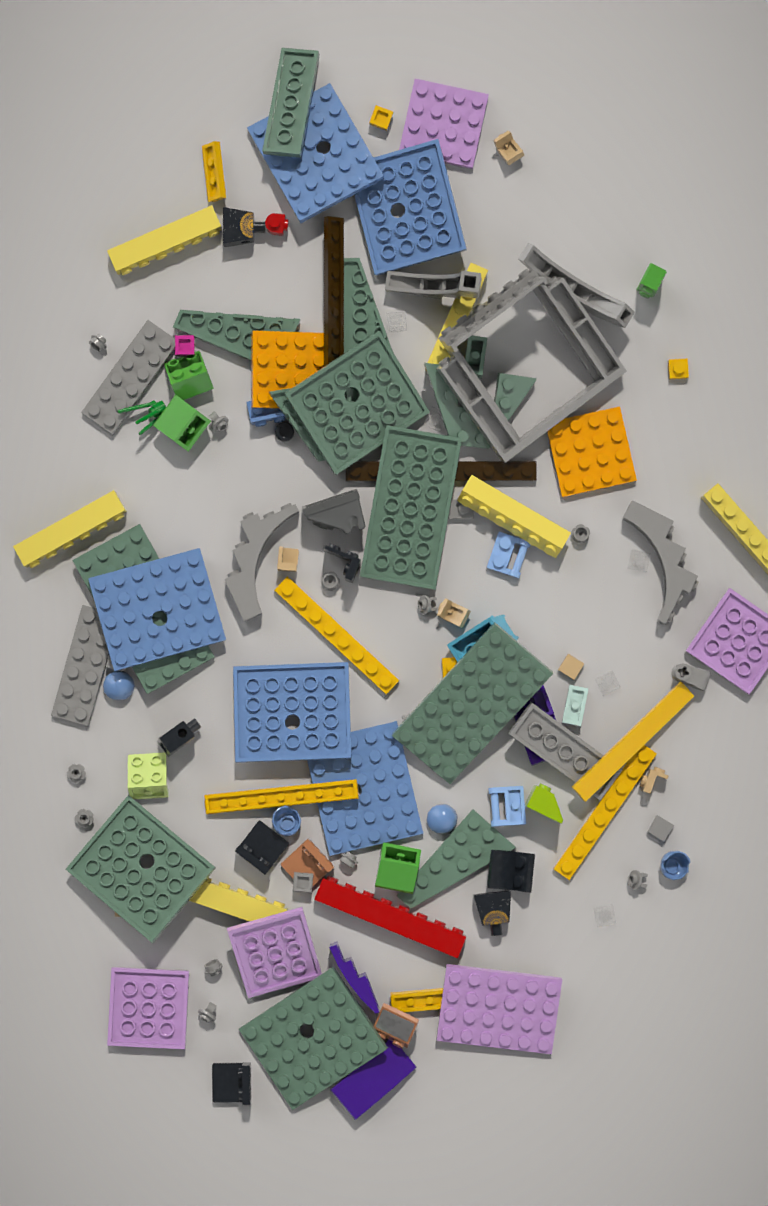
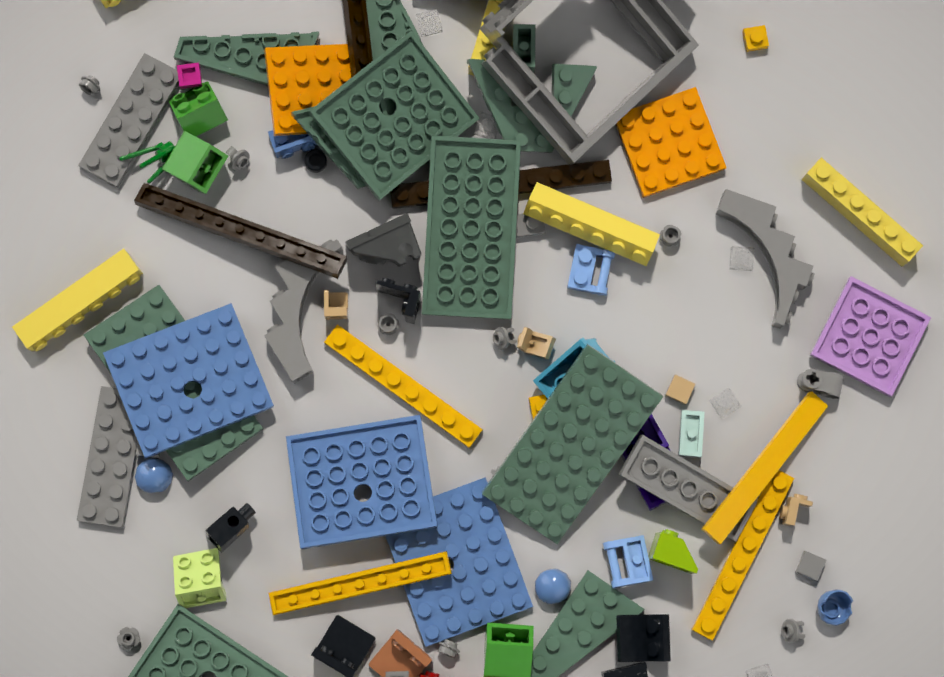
camera: 10 degrees left, 5 degrees down
(81, 773) = (119, 585): light grey plate -> none
(214, 486) = (241, 230): none -> dark brown plate
(286, 821) = (369, 611): medium blue hair -> none

